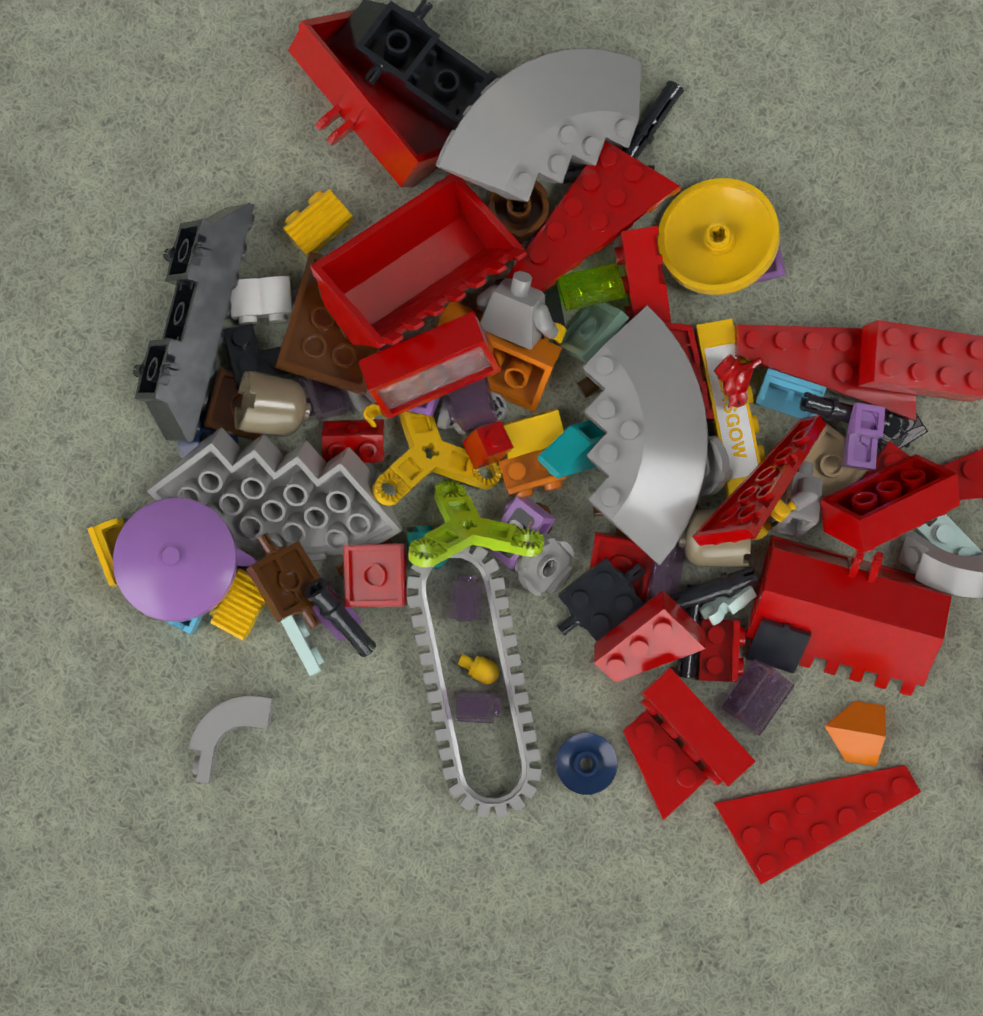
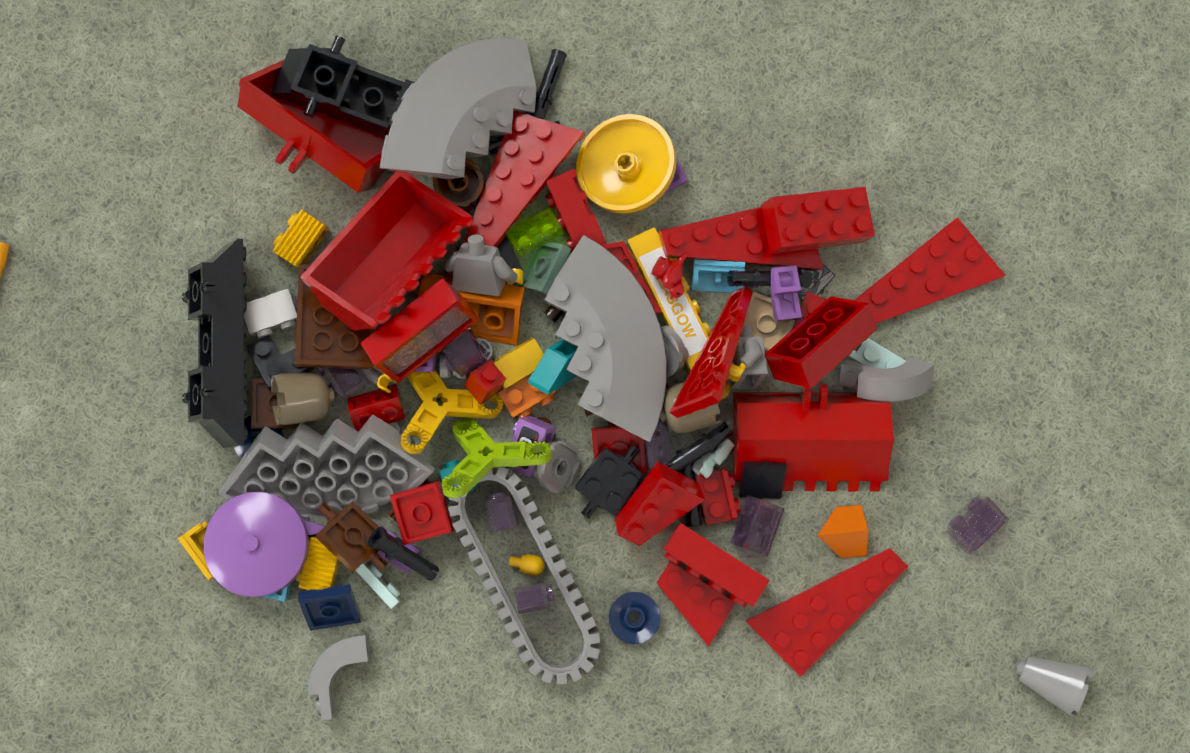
camera: 20 degrees left, 0 degrees up
(239, 655) = (329, 607): none -> dark blue plate

